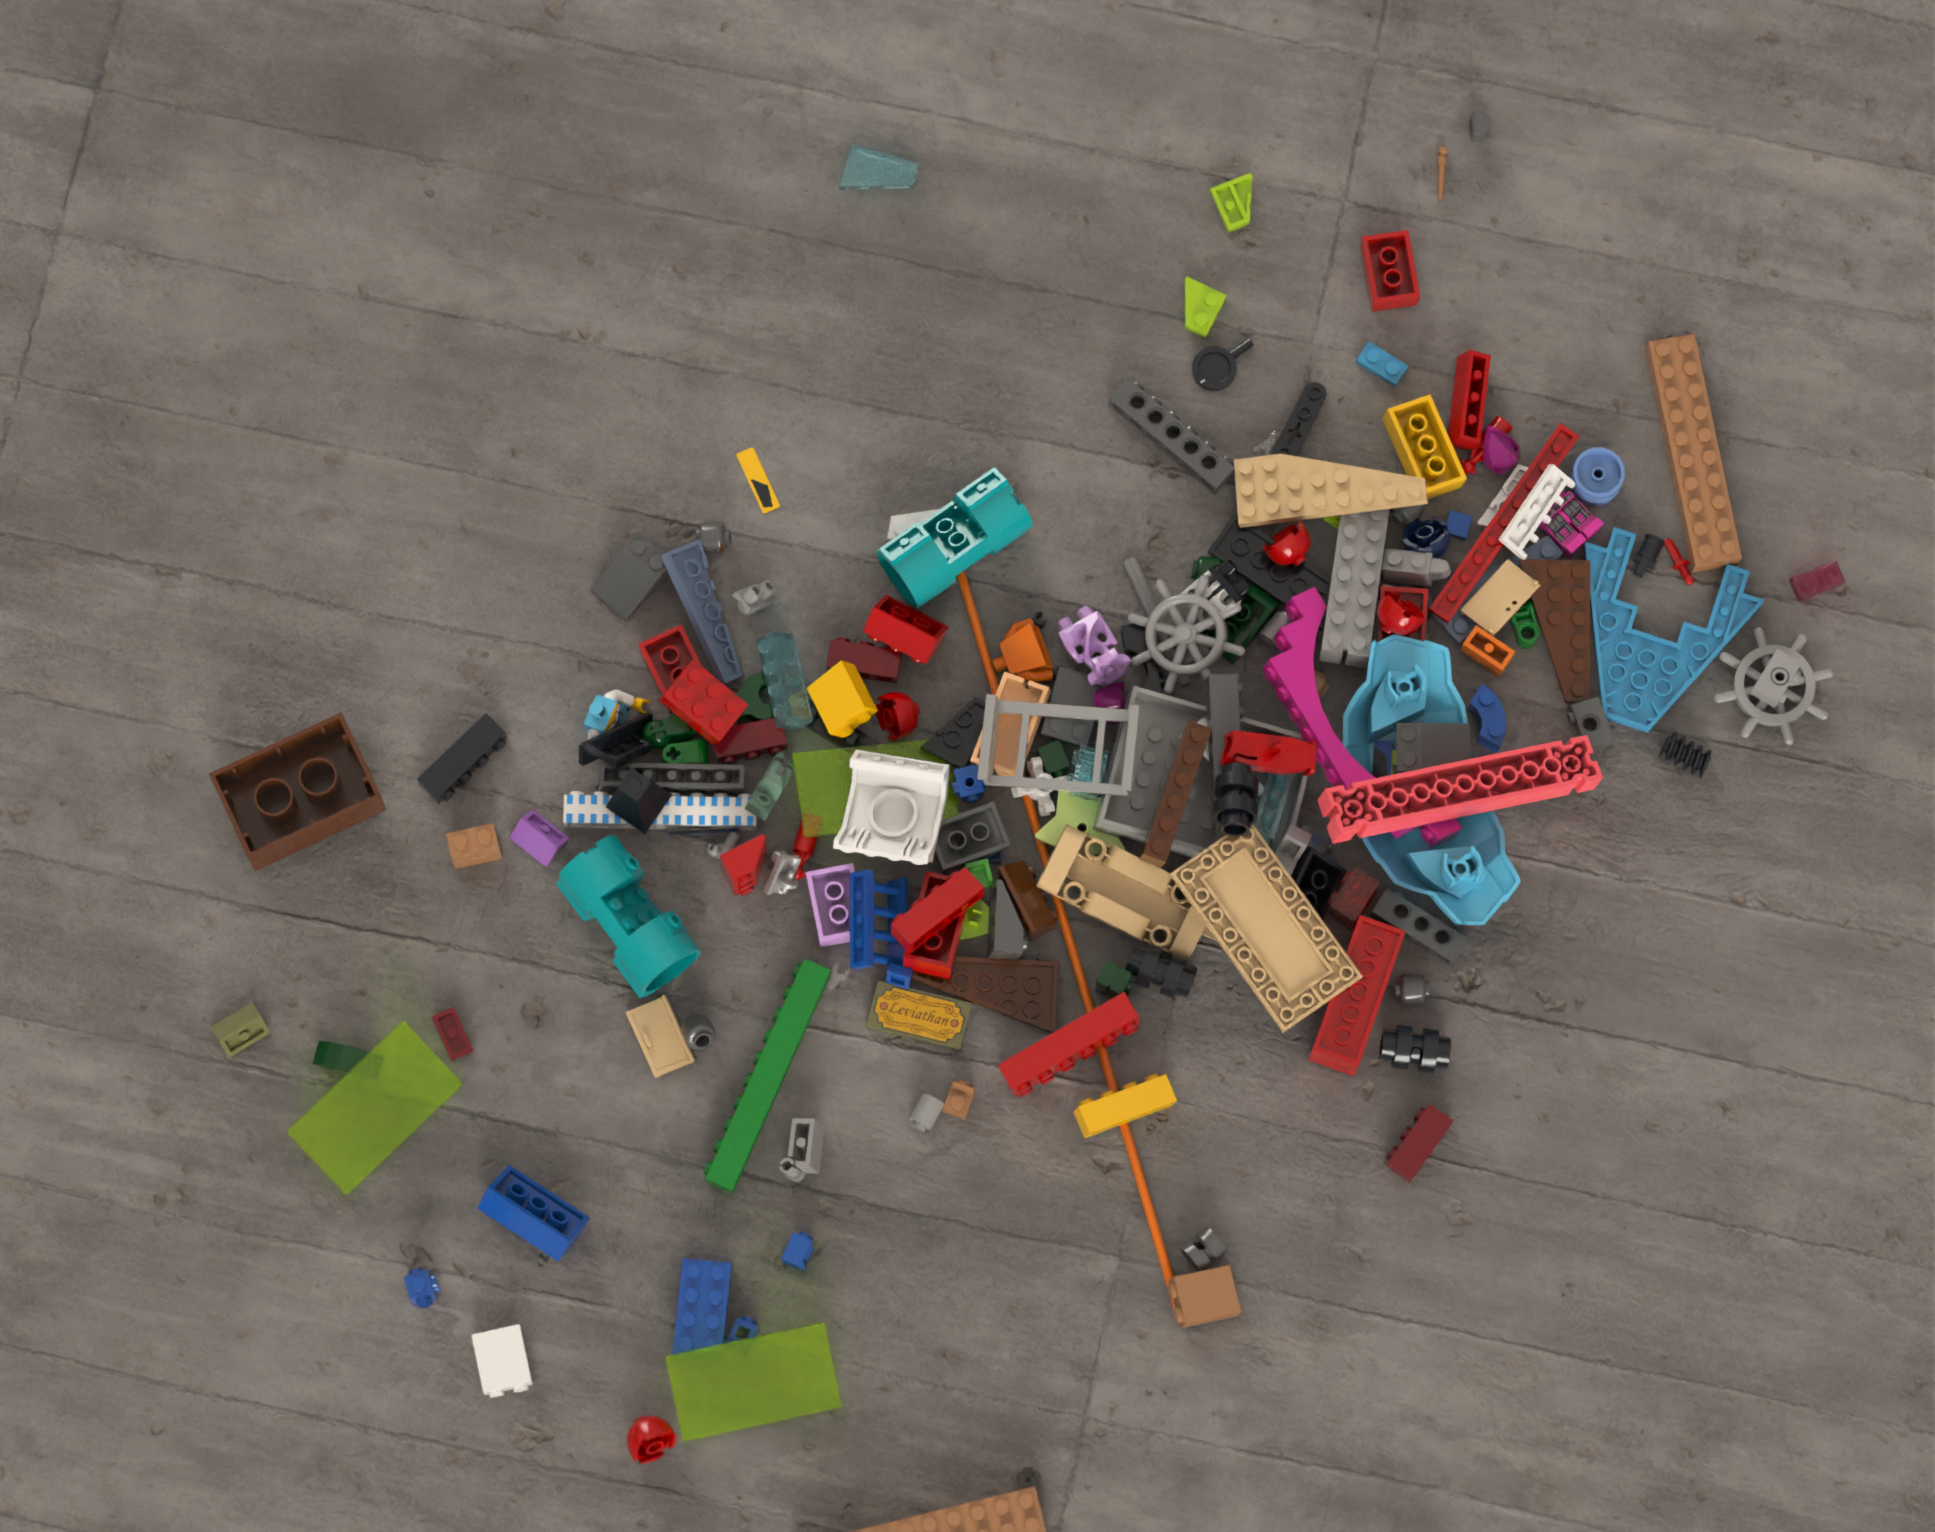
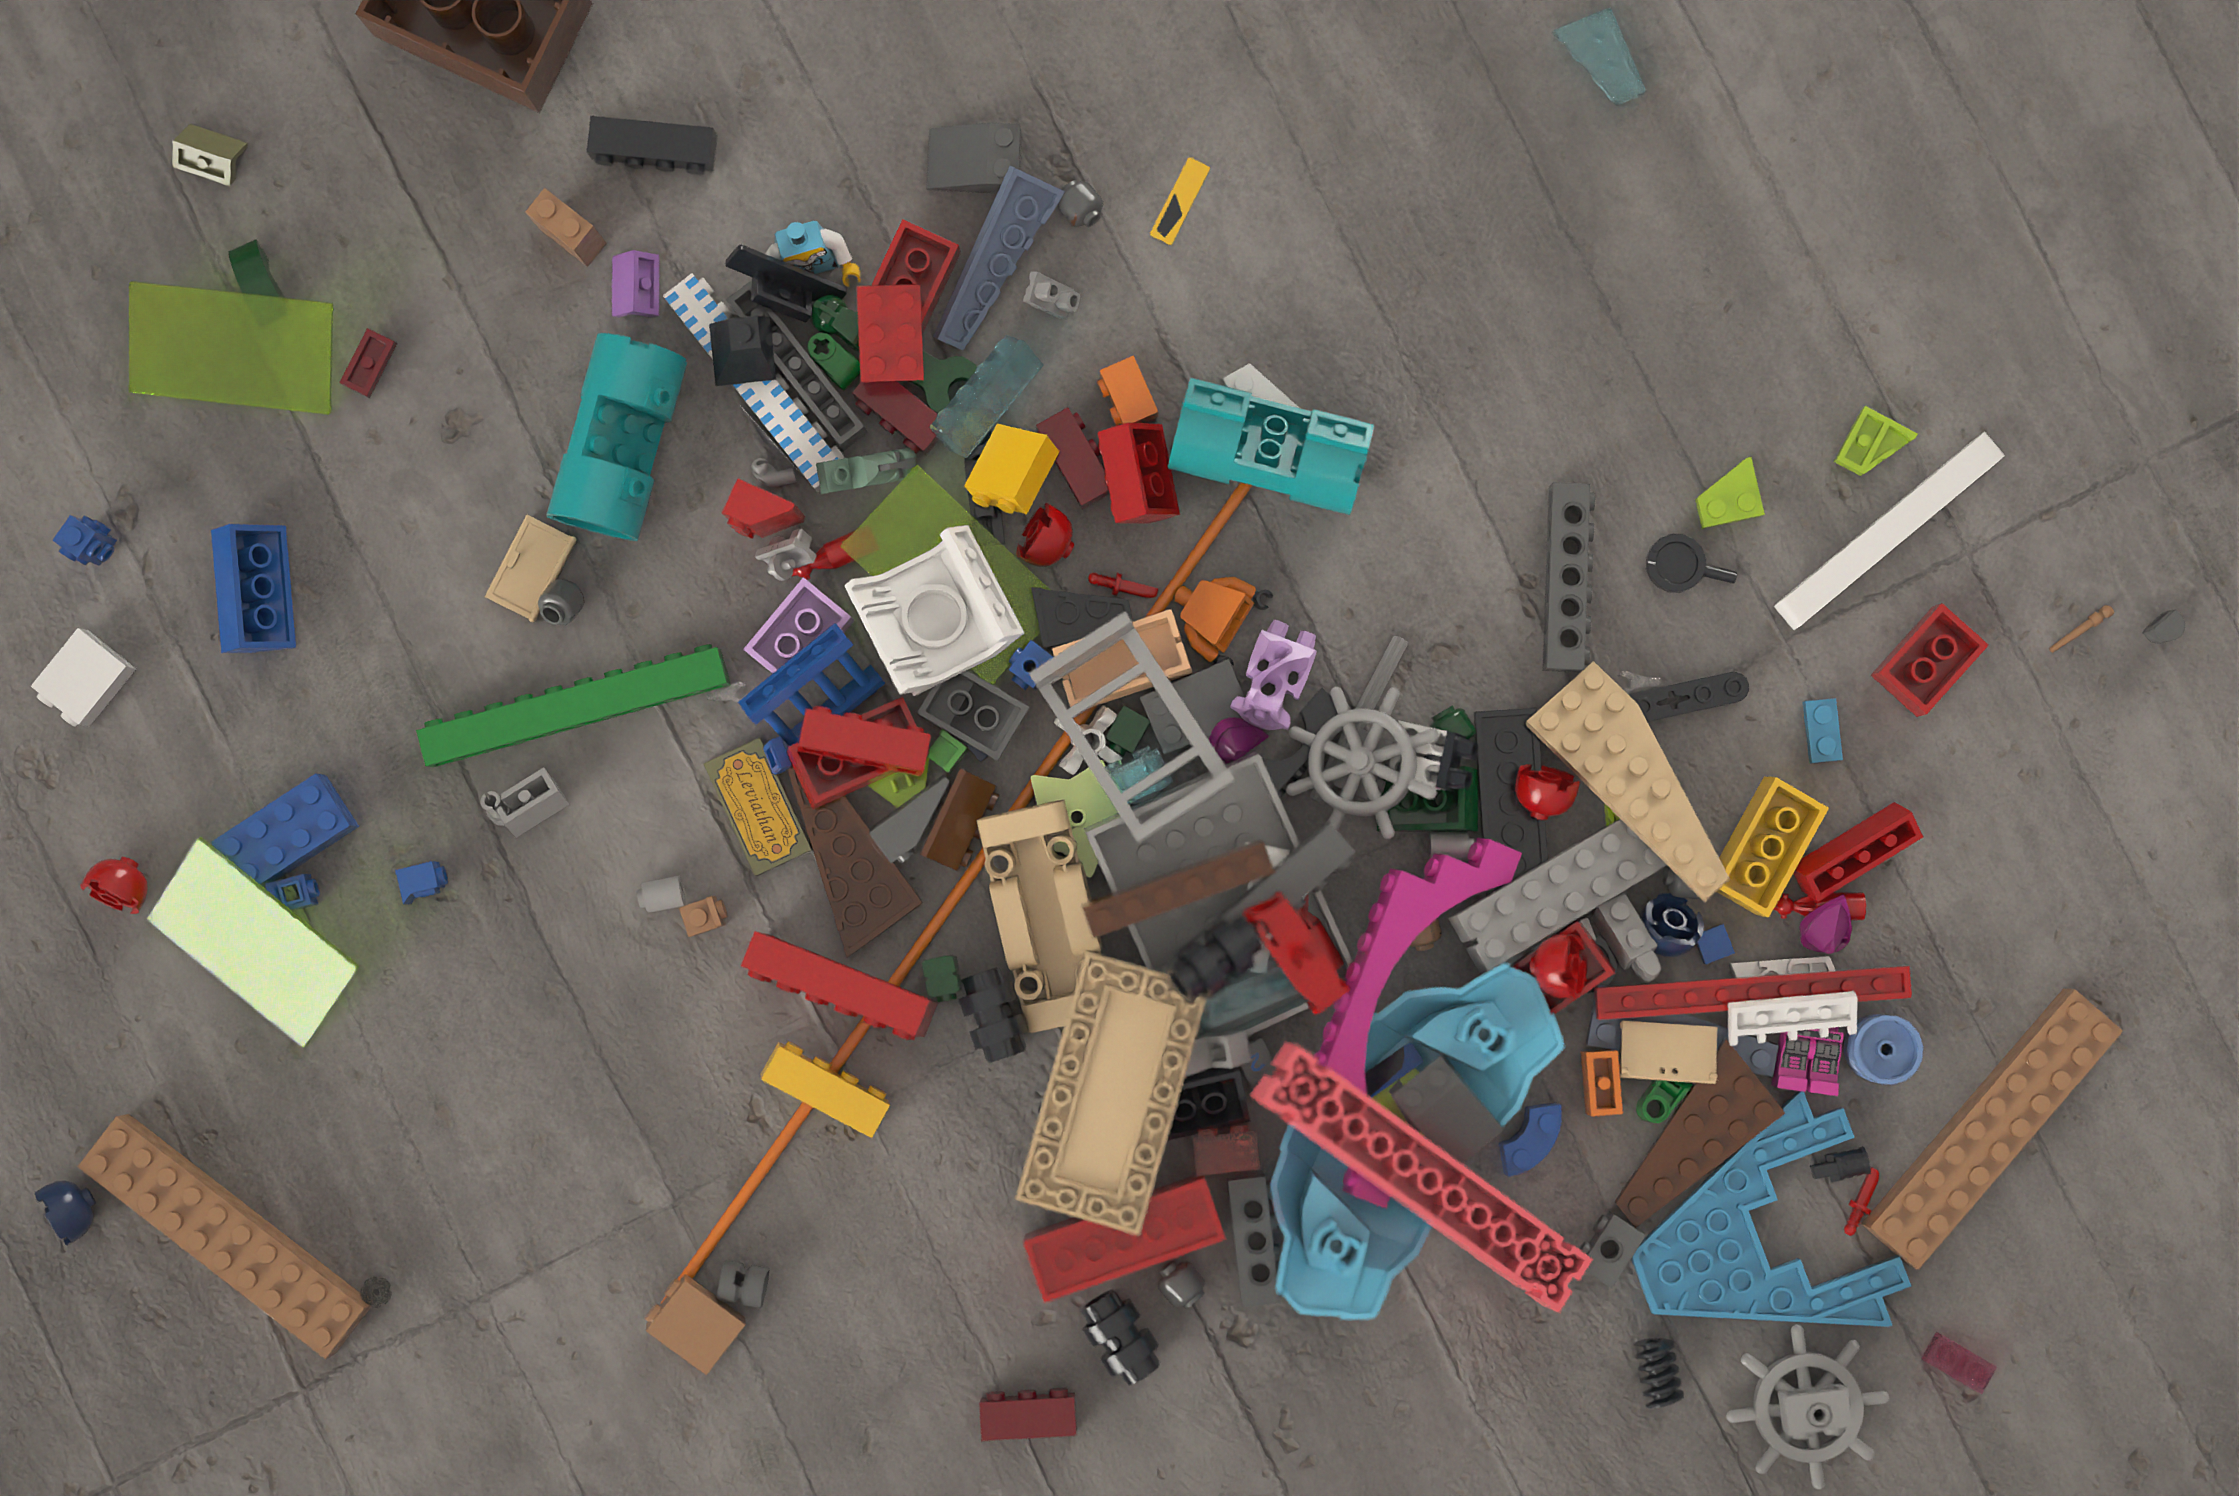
camera: 60 degrees right, 10 degrees up
(850, 600) = (1127, 392): none -> orange brick
(960, 697) = (1122, 585): none -> red piece
(1294, 234) = (1889, 530): none -> white beam

